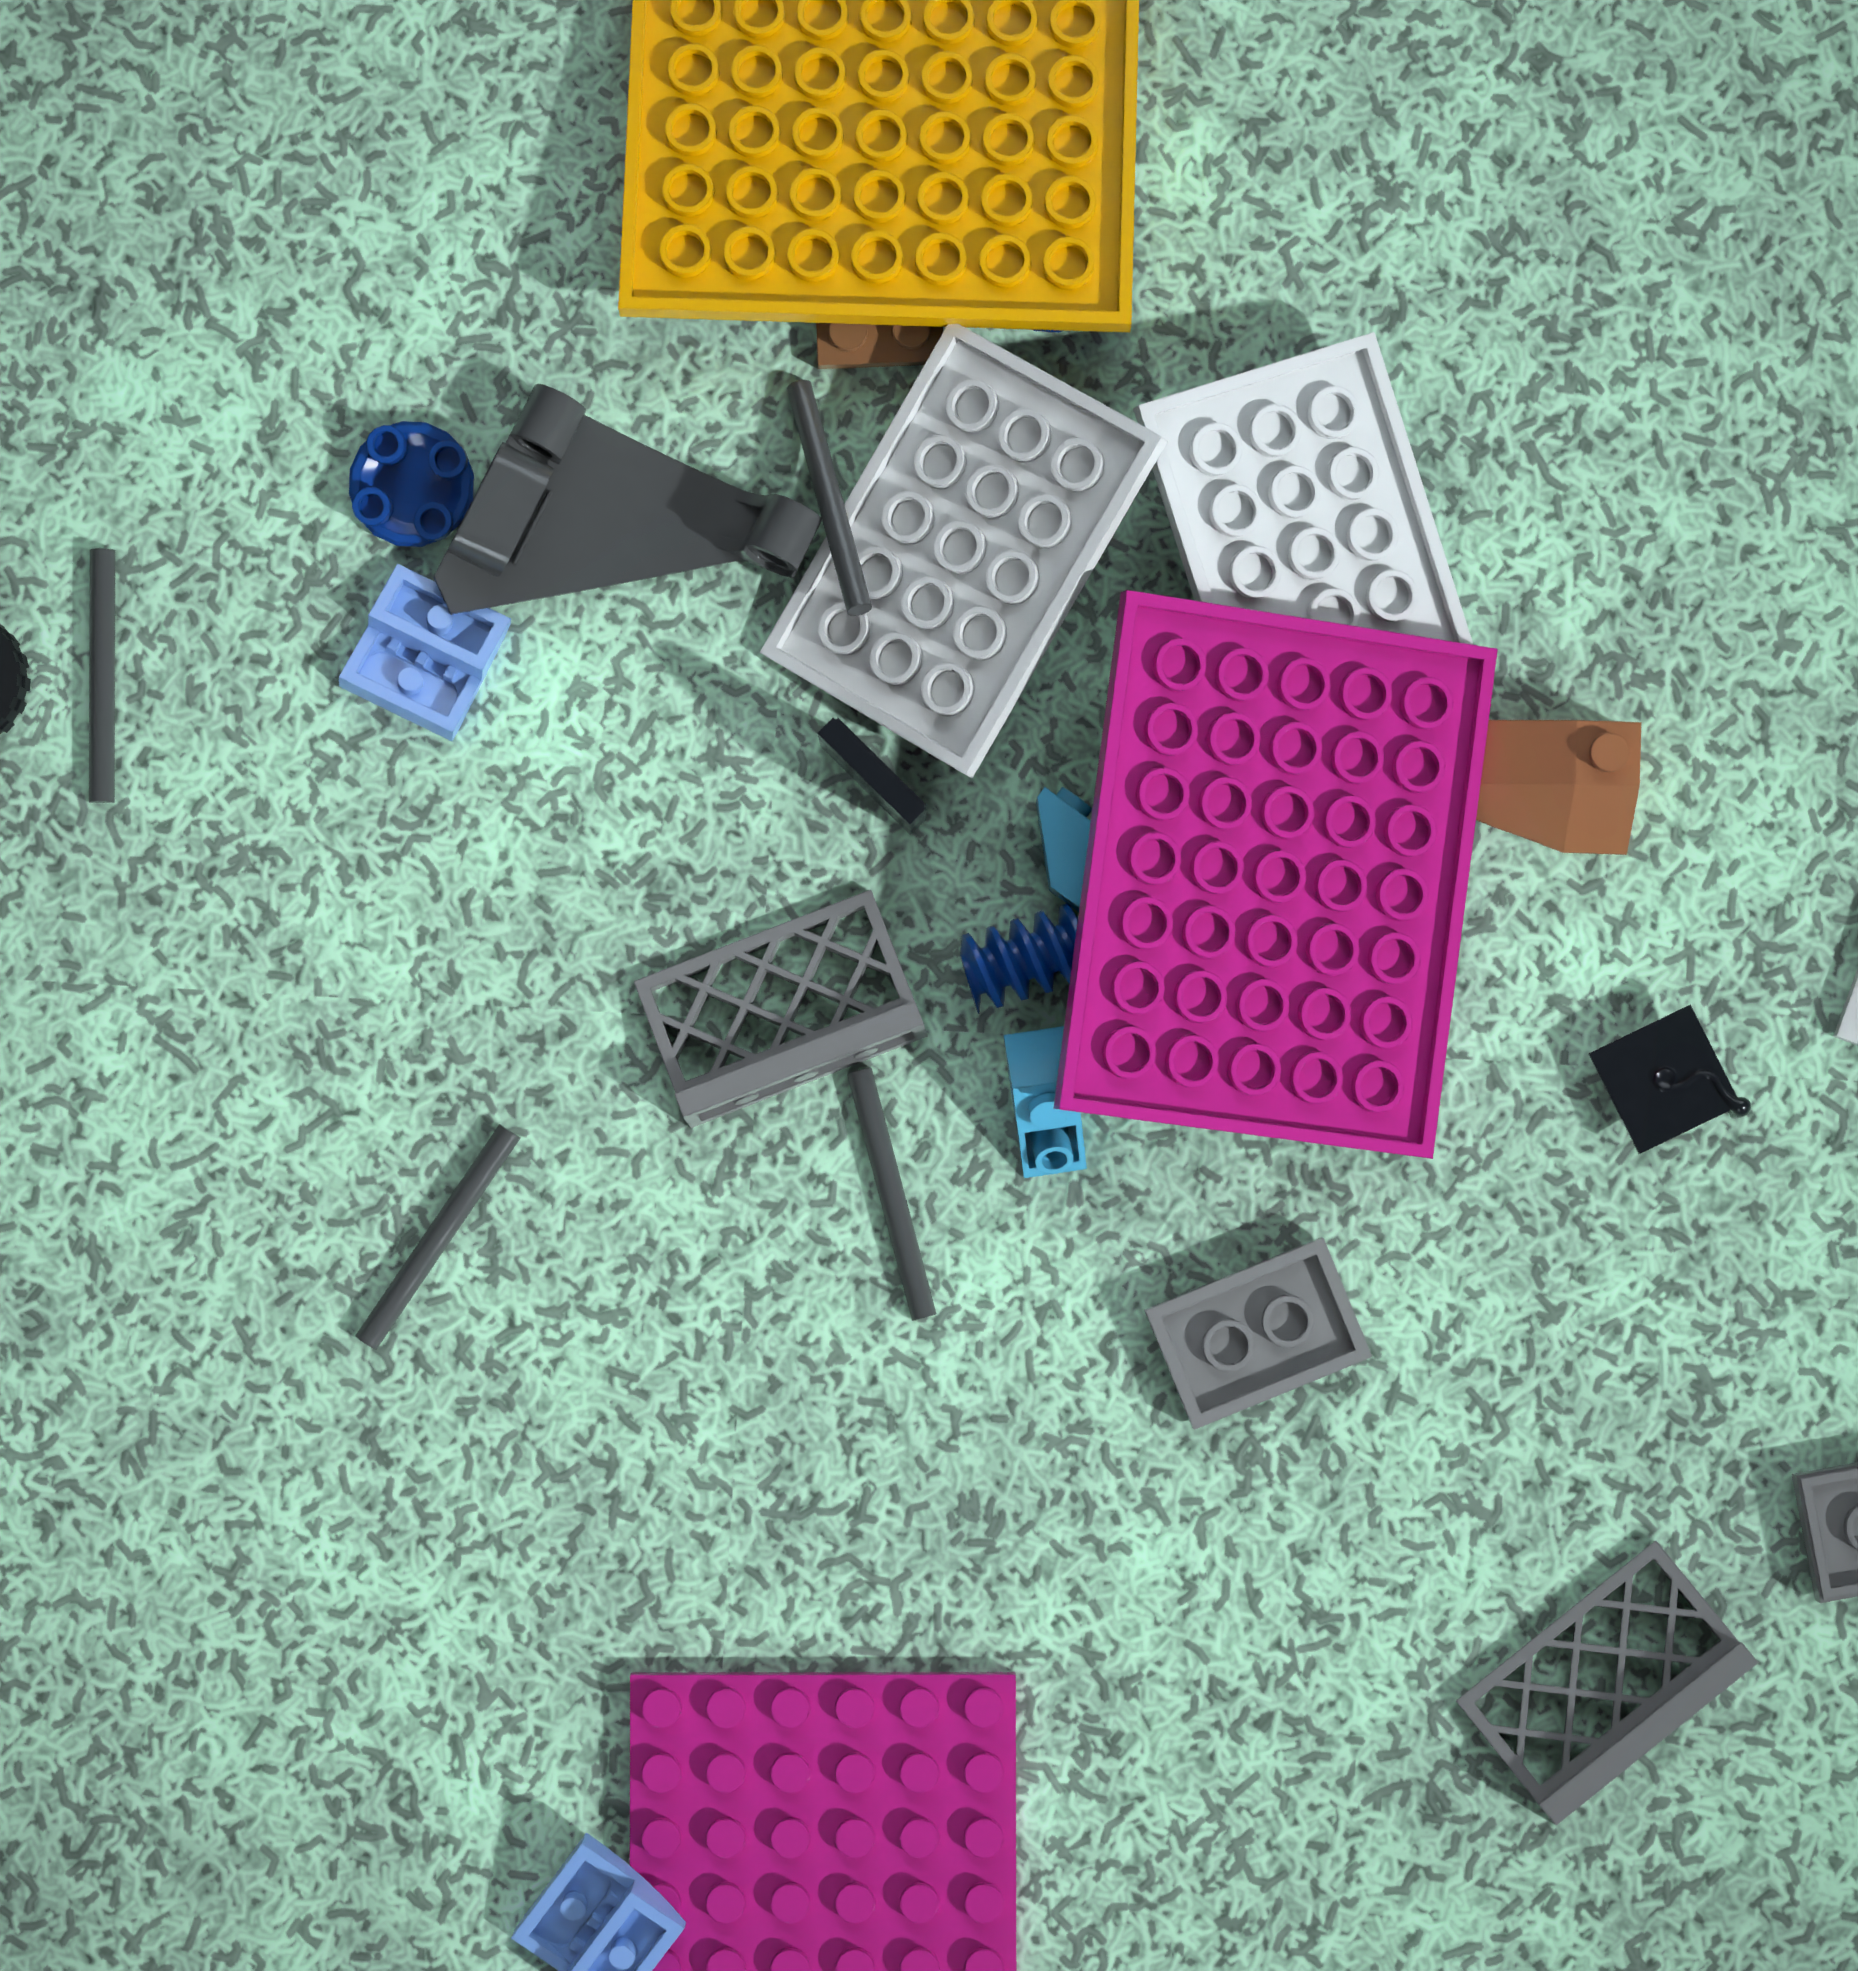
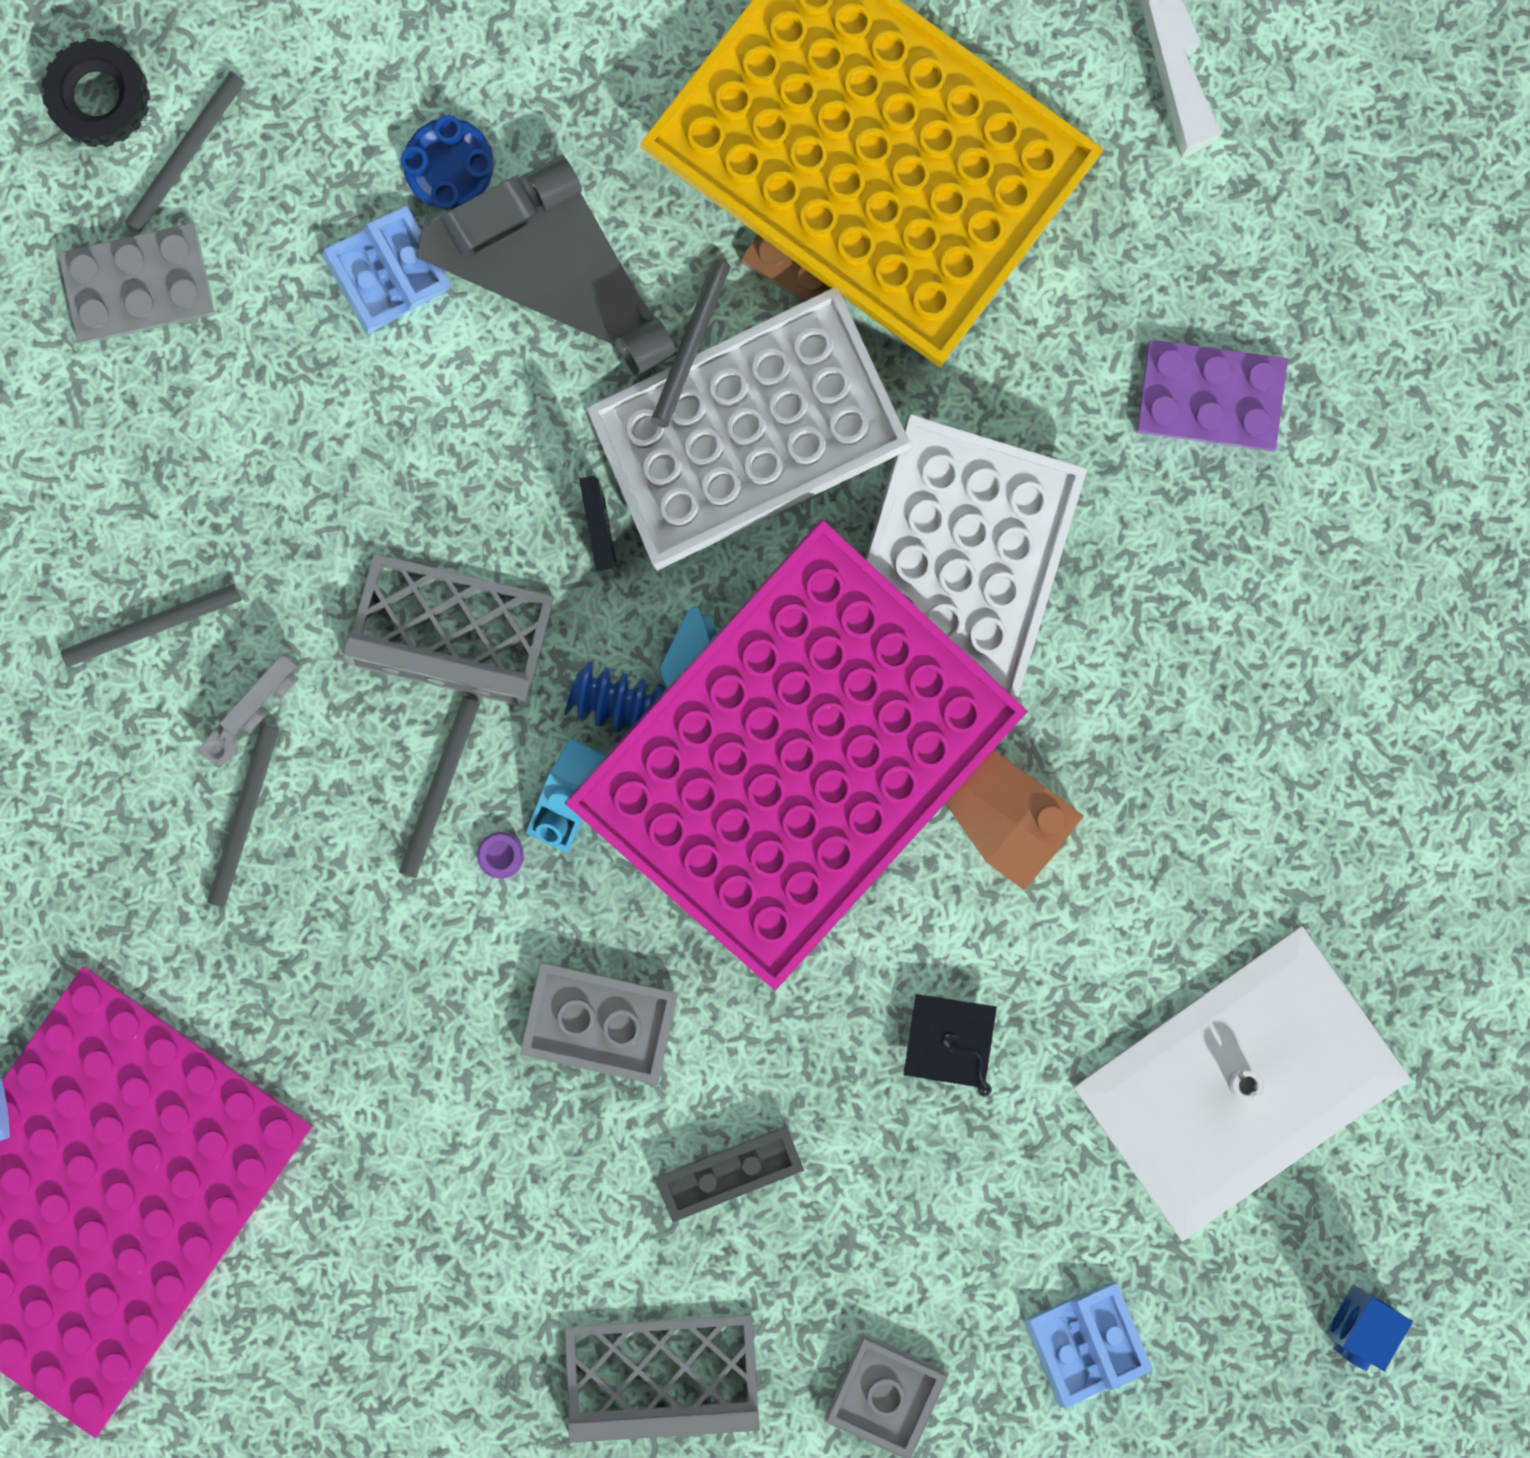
camera: 35 degrees right, 0 degrees up
(151, 862) = (136, 283): none -> light grey plate
(619, 1258) = (248, 712): none -> light grey hinge
(692, 1379) = (243, 816): none -> dark grey bar
(1014, 1222) = (500, 855): none -> medium lavender tile
(1451, 155) = (1212, 395): none -> medium lavender plate
(1521, 1399) = (729, 1173): none -> dark grey plate

